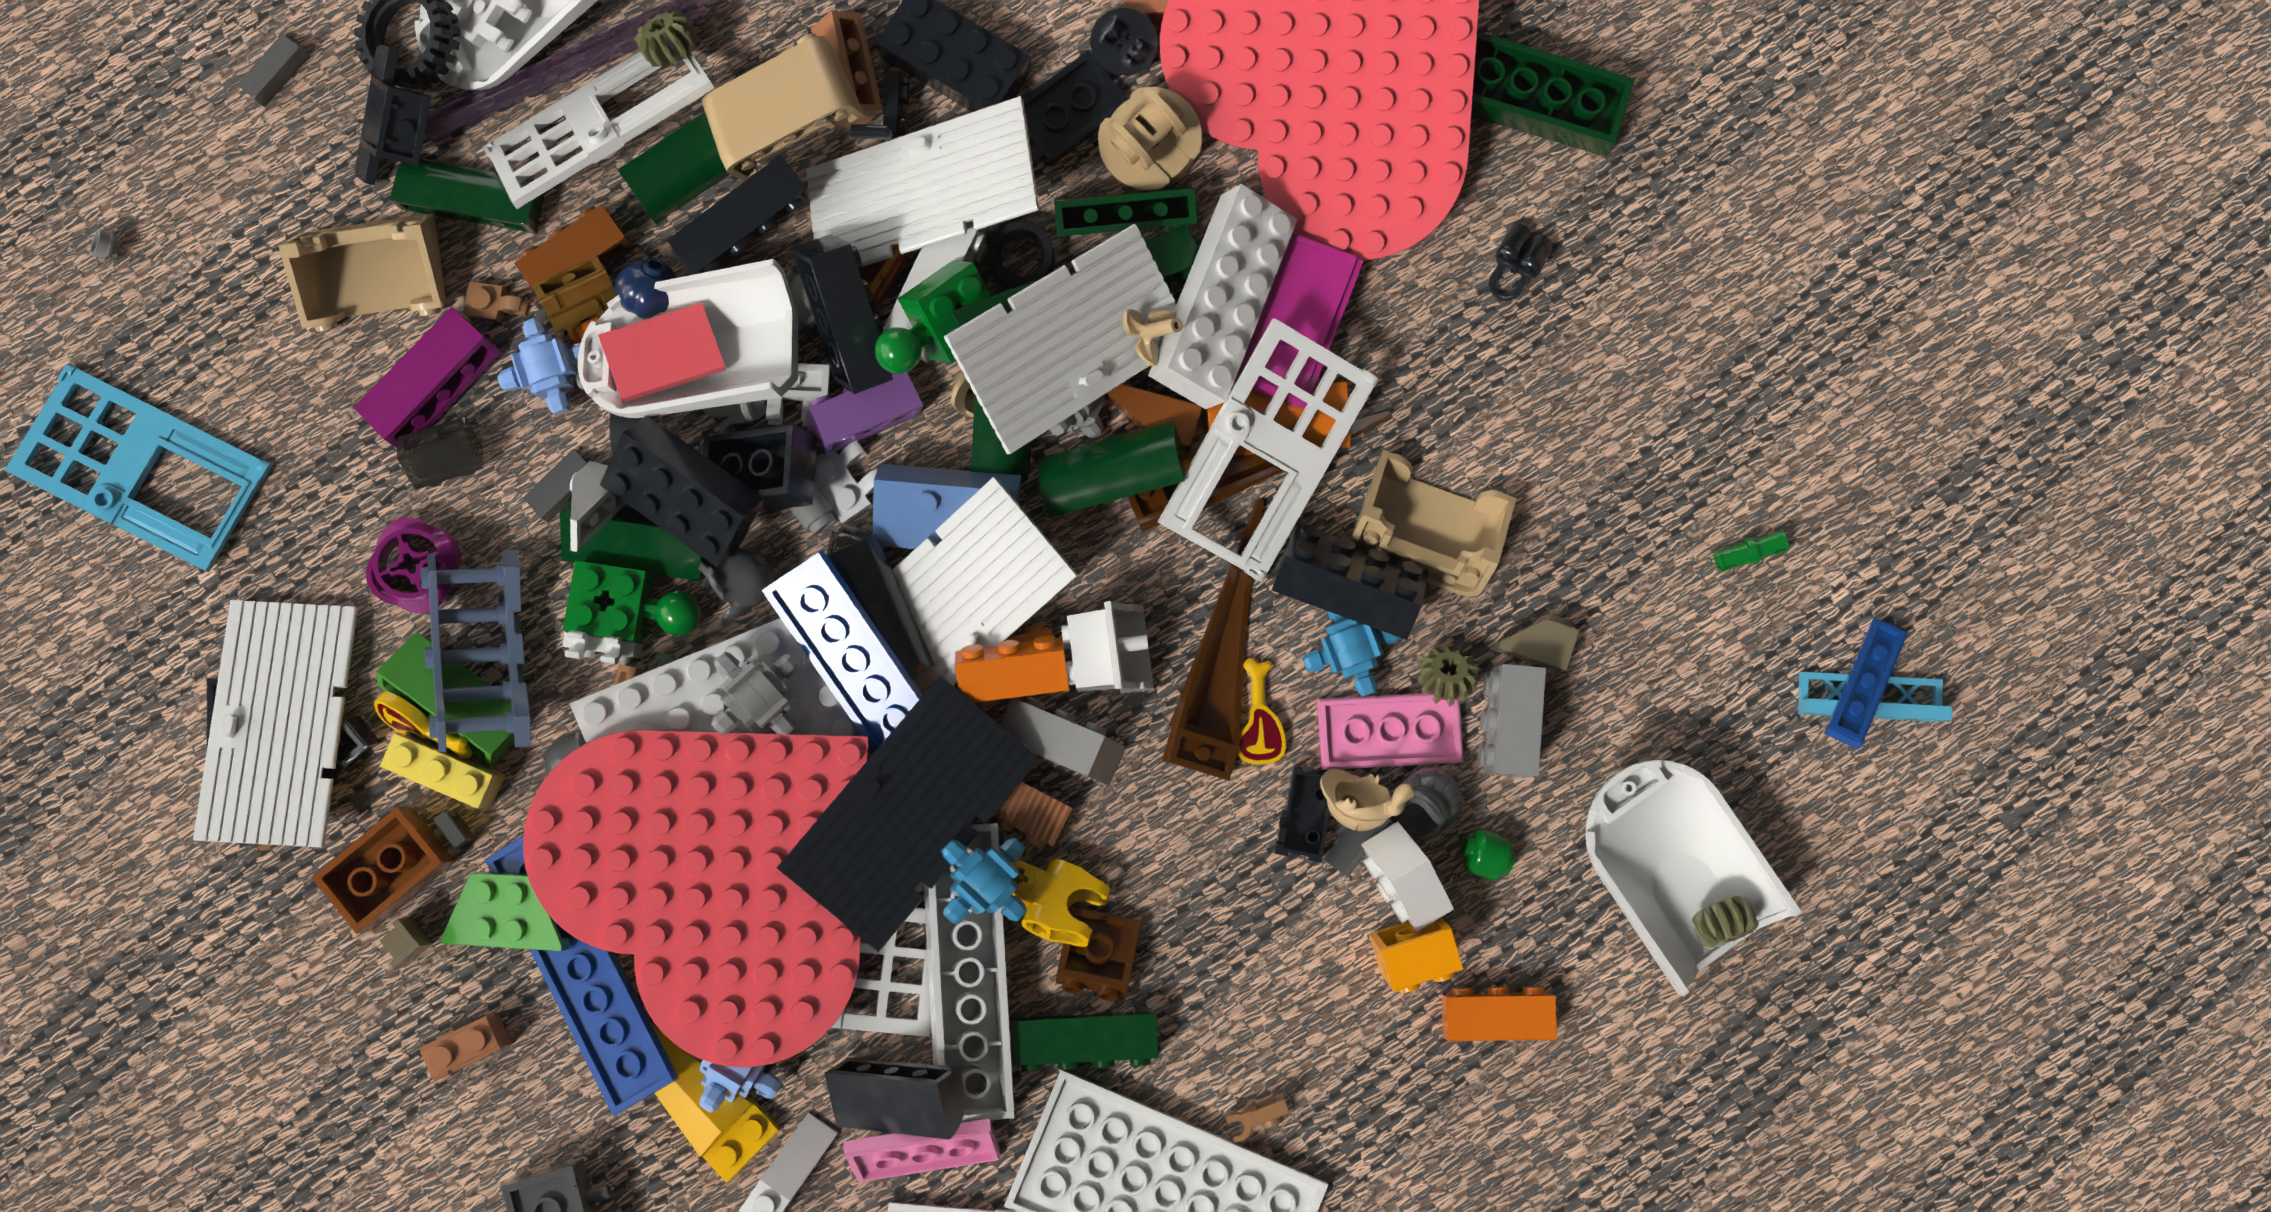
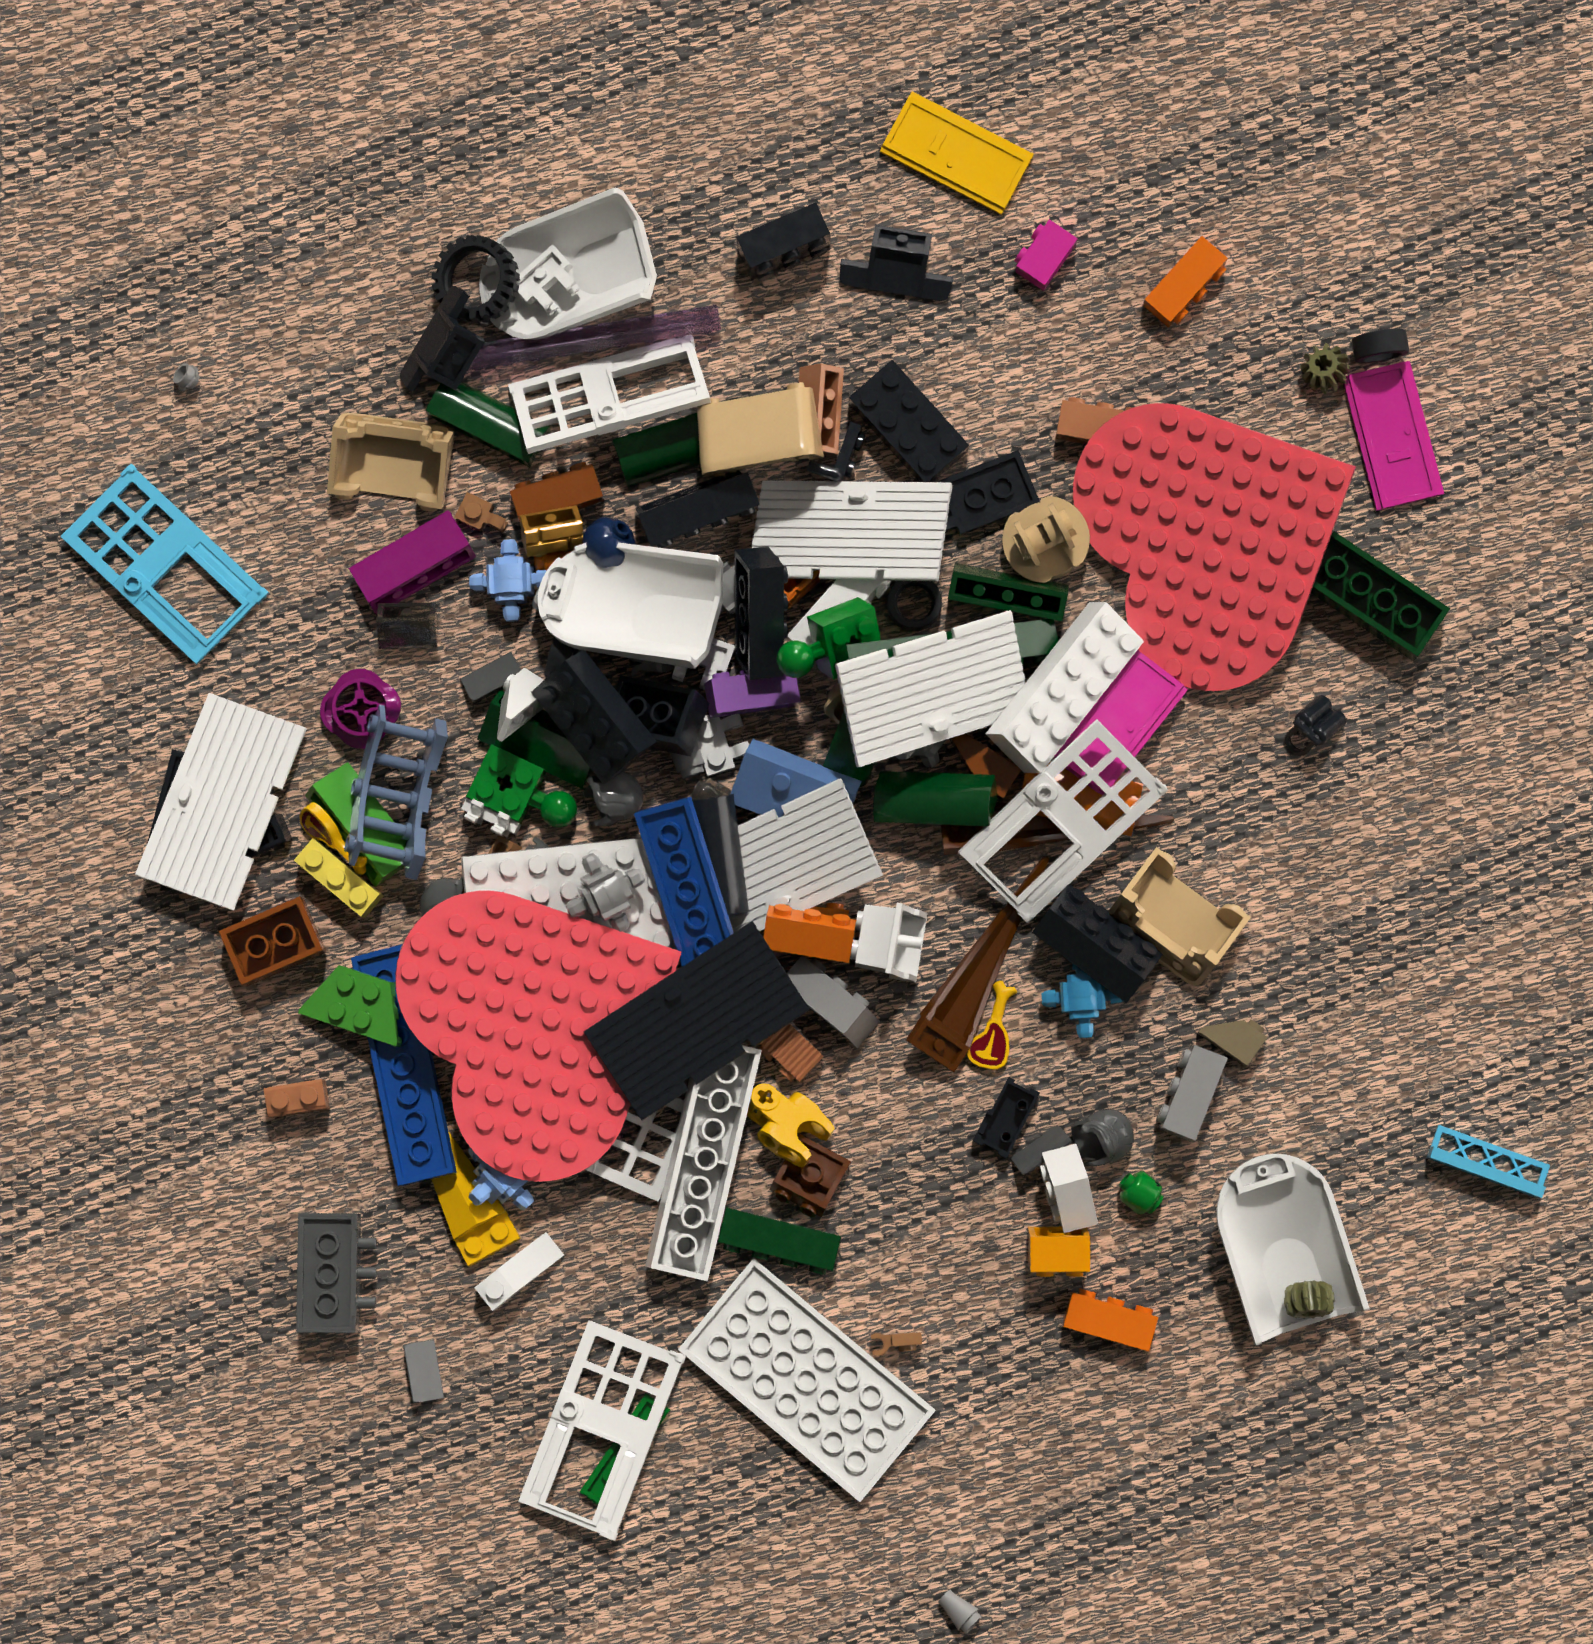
camera: 25 degrees right, 0 degrees up
(273, 70) = (357, 271): dark grey slope -> none
(405, 942) = (270, 1003): dark tan panel -> none
(454, 829) = (334, 926): dark grey tile -> none
(662, 352) = (608, 601): coral tile -> none
(666, 38) = (683, 346): olive gear -> none
(897, 1097) = (621, 1237): black brick -> none
(910, 1154) = (628, 1285): bright pink tile -> none
(984, 880) = (739, 1090): dark azure piece -> none
(1111, 30) = (1041, 442): black plate -> none
(1156, 324) = (1004, 696): tan plant -> none
(1361, 801) = (1052, 1119): tan piece -> none
(1388, 731) = (1094, 1072): bright pink tile -> none
(1448, 675) = (1152, 1042): olive gear -> none
(1751, 551) = (1428, 1016): green pin -> none
(1866, 683) = (1483, 1147): blue tile -> none

